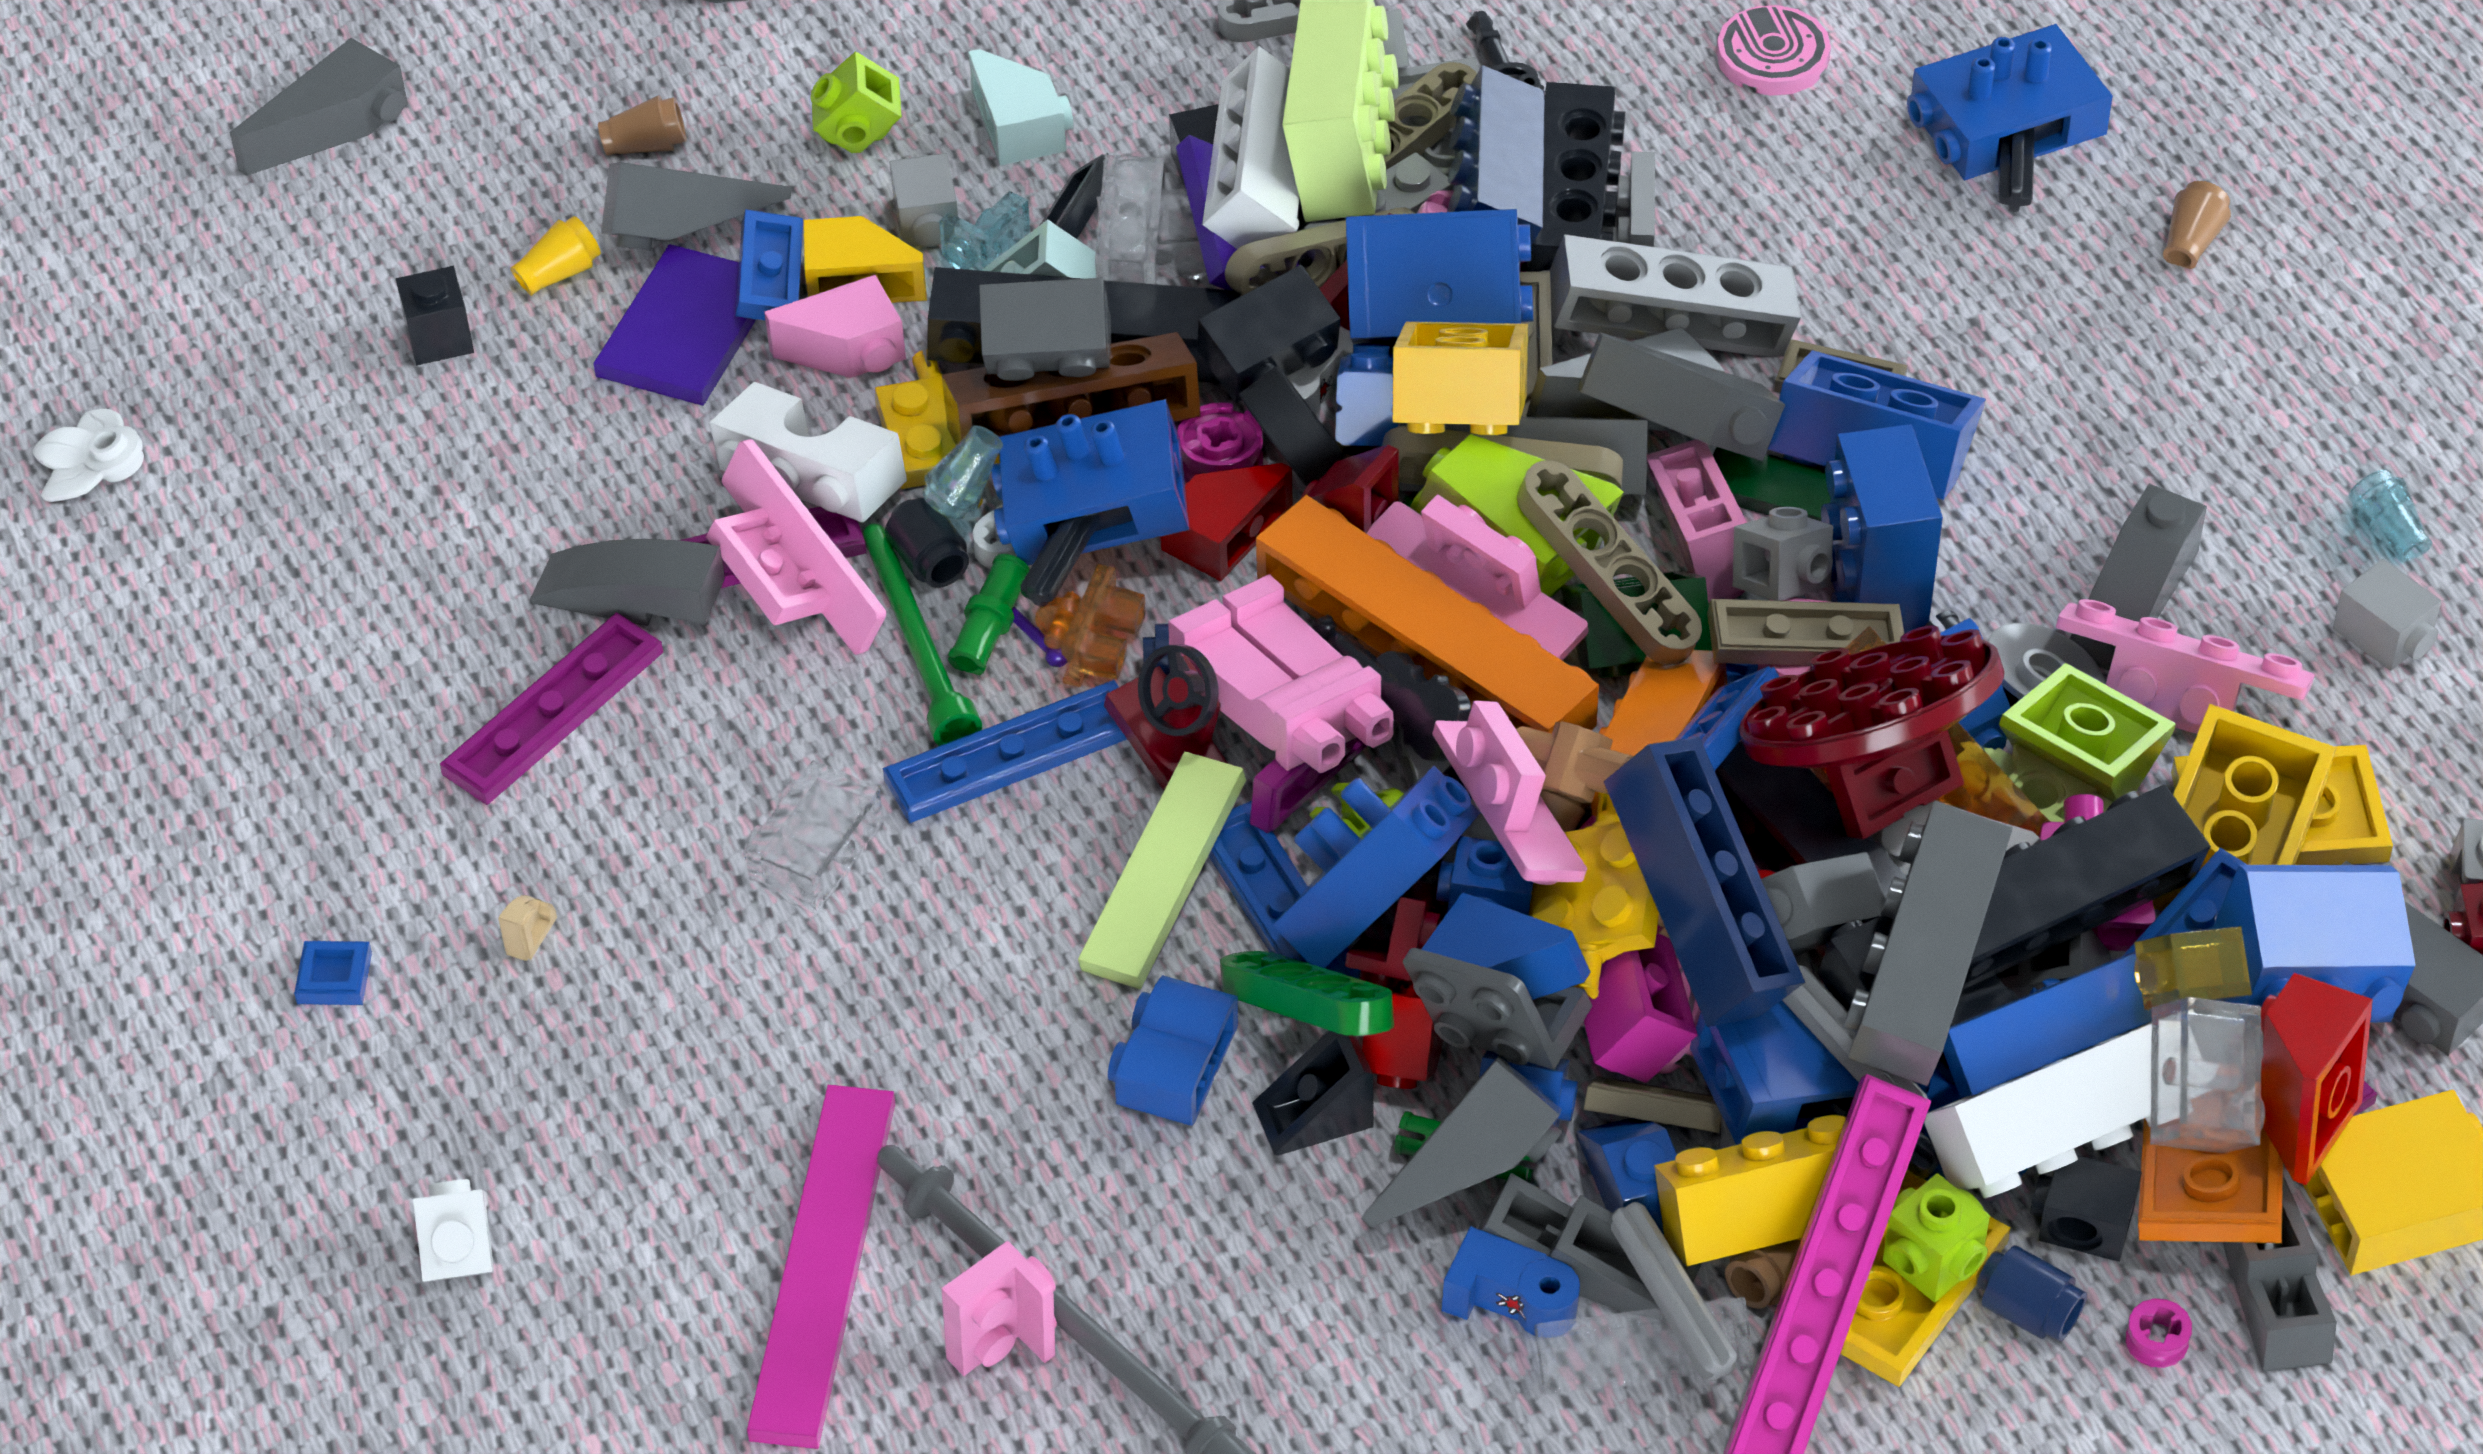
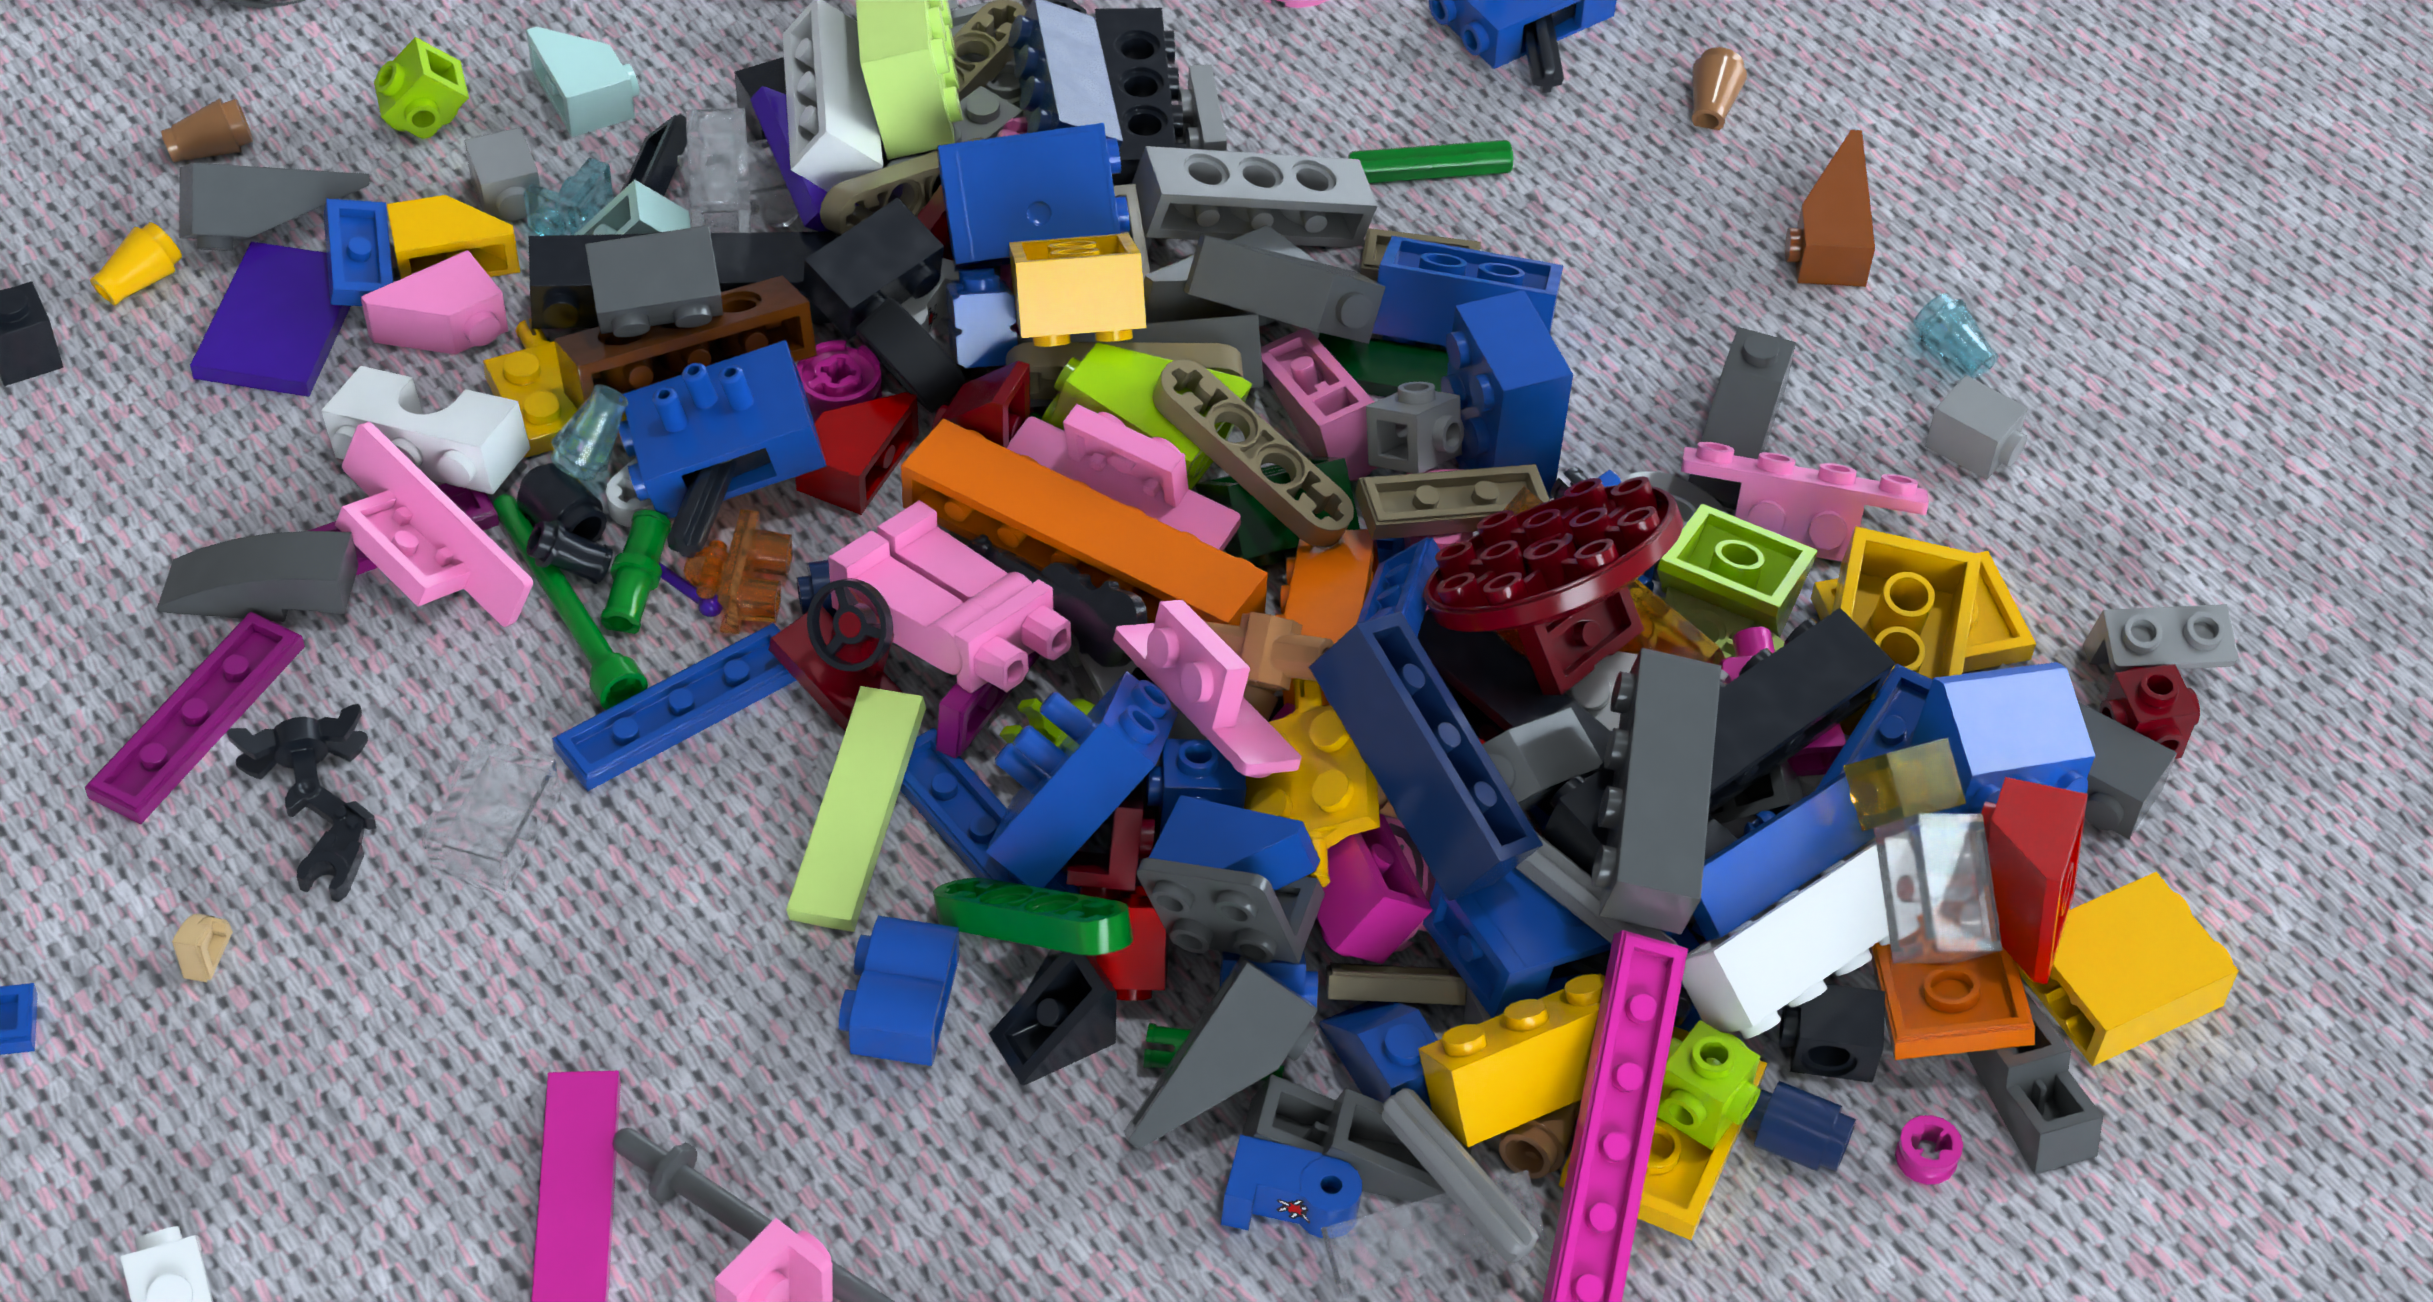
camera: 15 degrees left, 0 degrees up
(645, 747) = (300, 746): none -> black piece
(926, 587) = (568, 551): none -> black pin
(1876, 275) = (1436, 161): none -> green axle
(2286, 380) = (1835, 222): none -> dark orange slope

